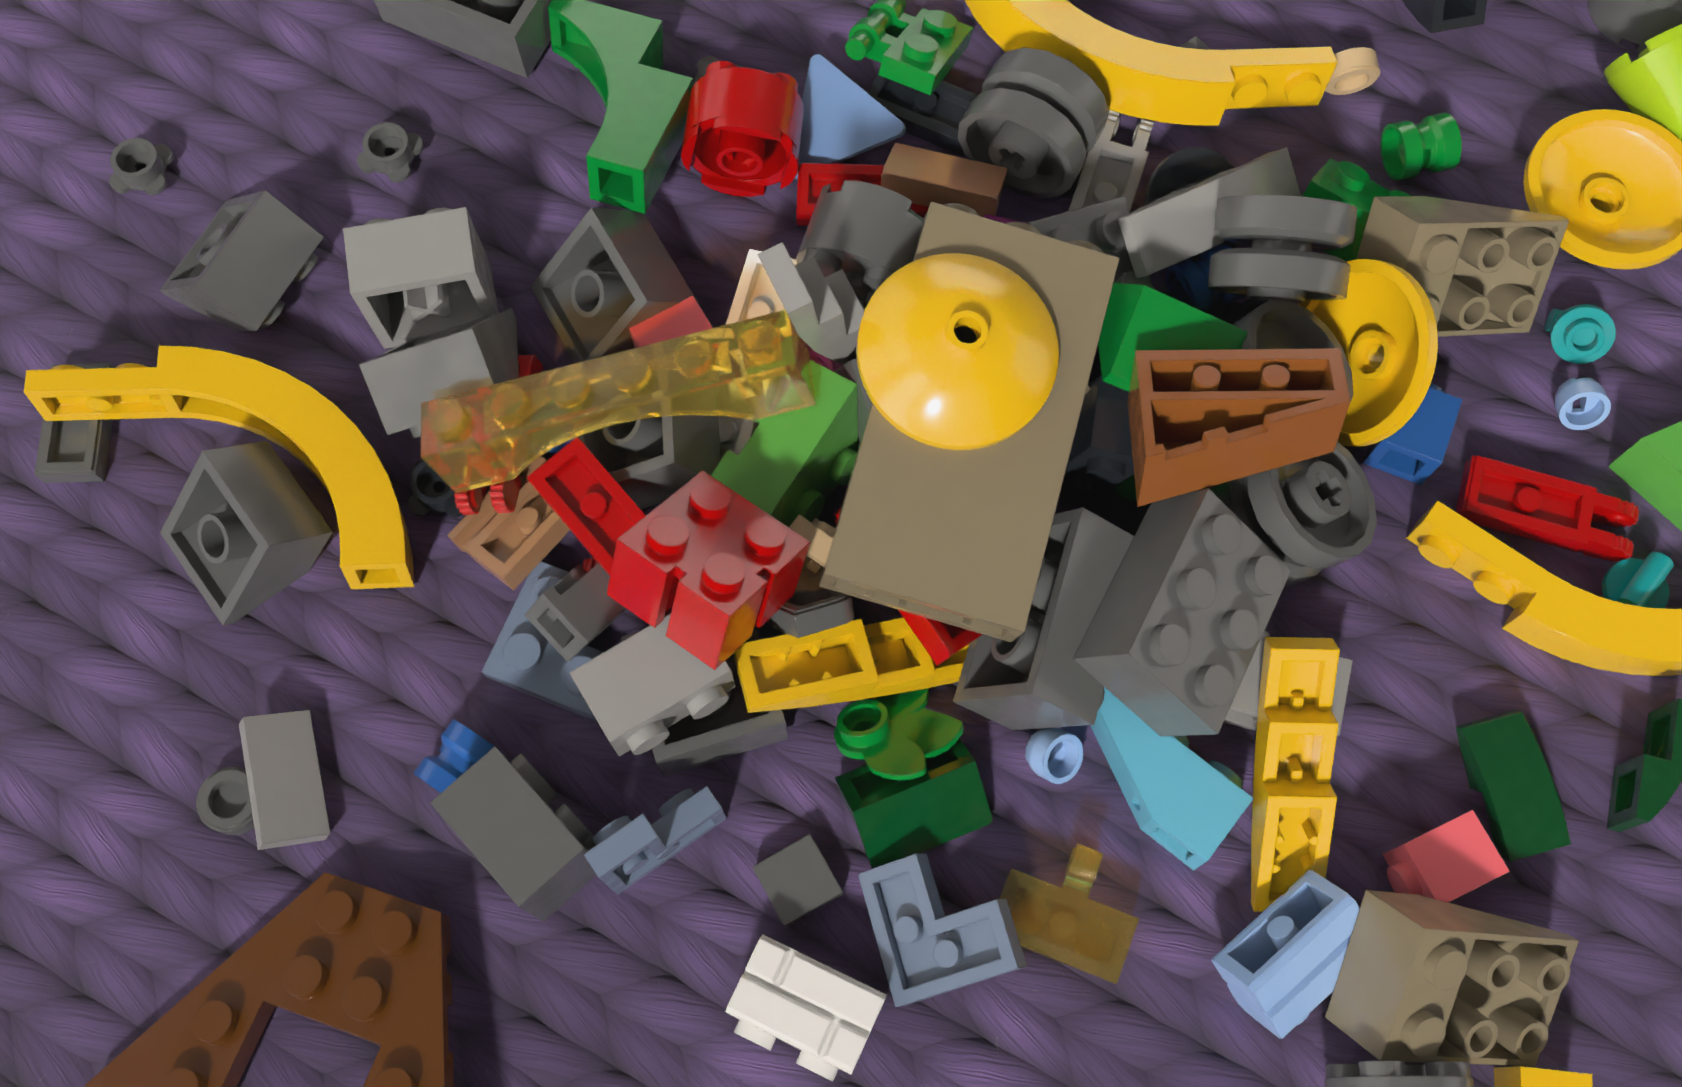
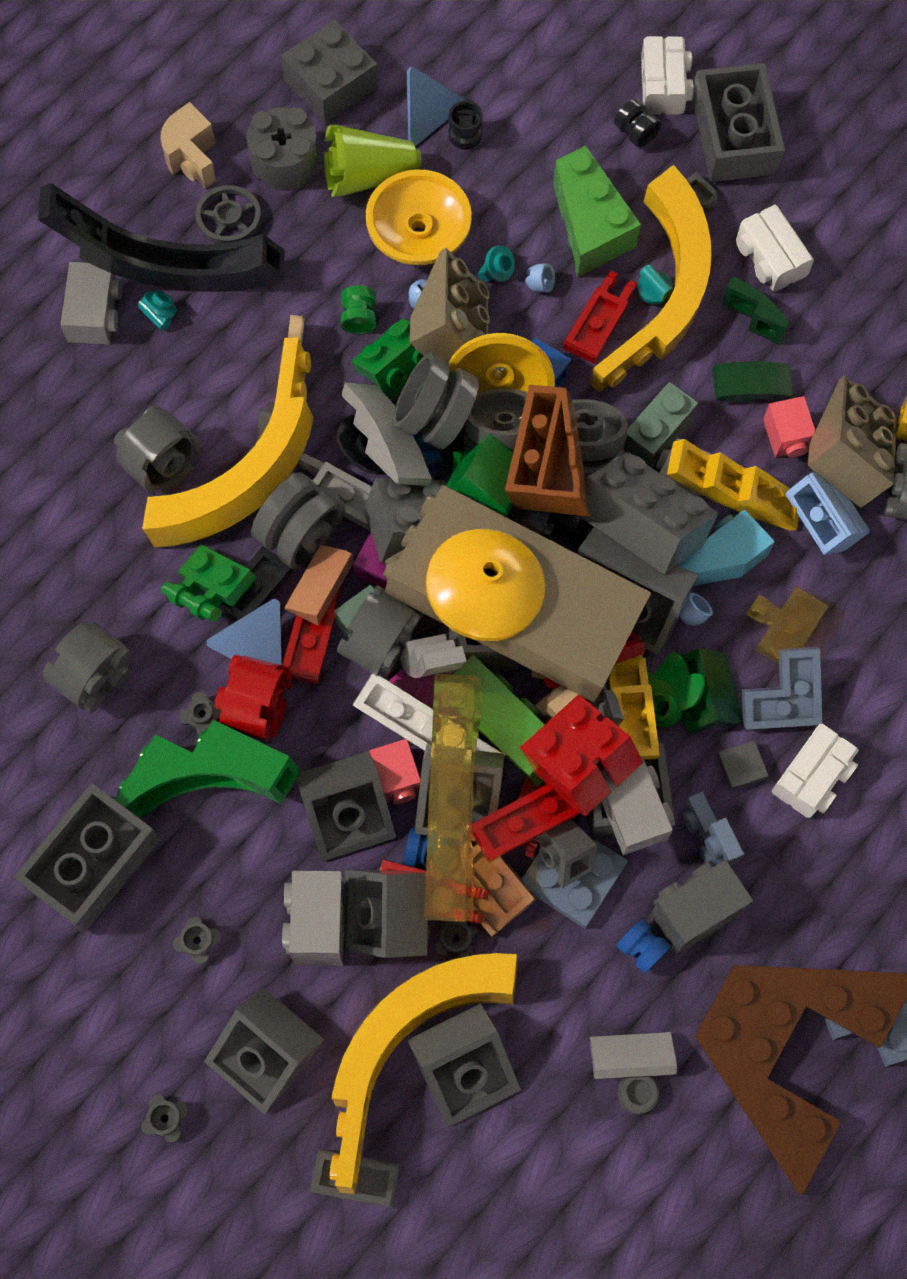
camera: 80 degrees left, 0 degrees up
(1384, 636) = (660, 424): none -> sand green brick

